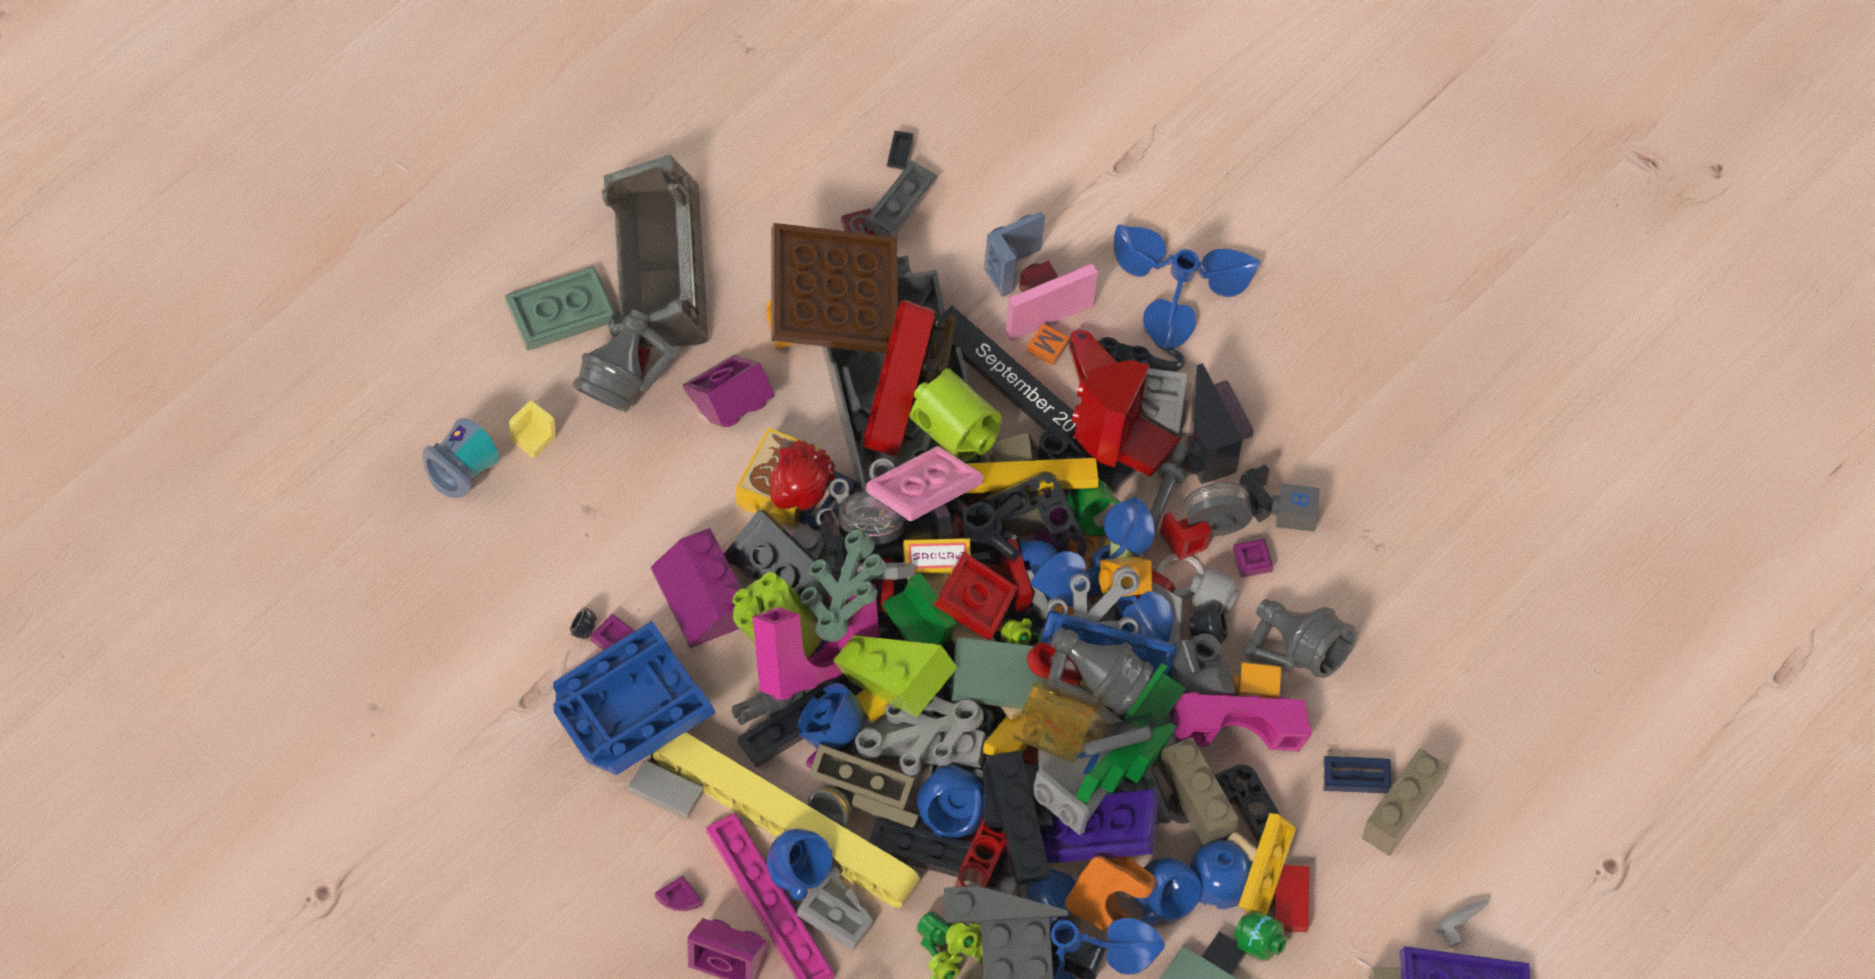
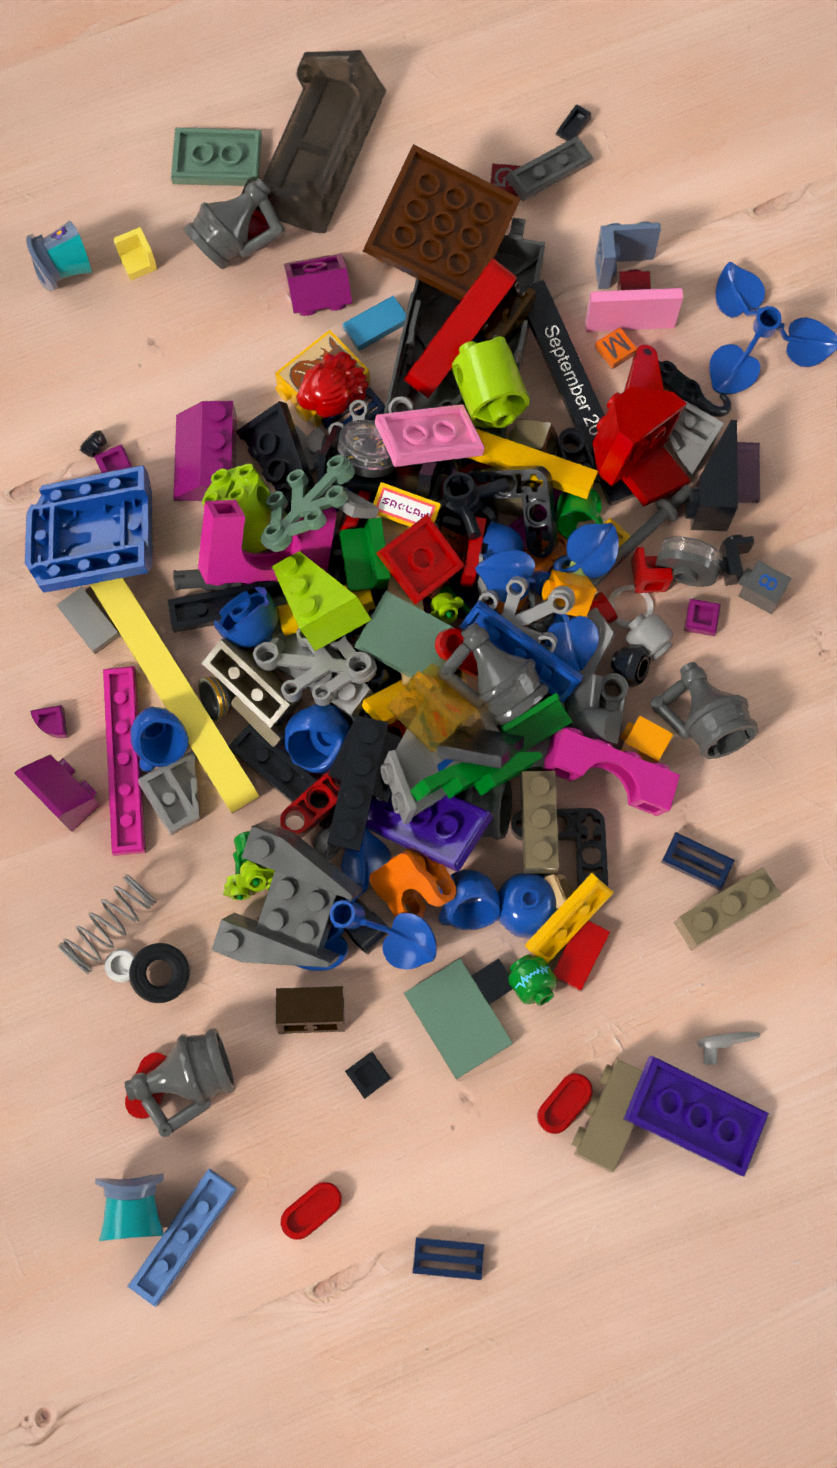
camera: 30 degrees right, 15 degrees up
(803, 407) = (375, 323): none -> dark azure tile

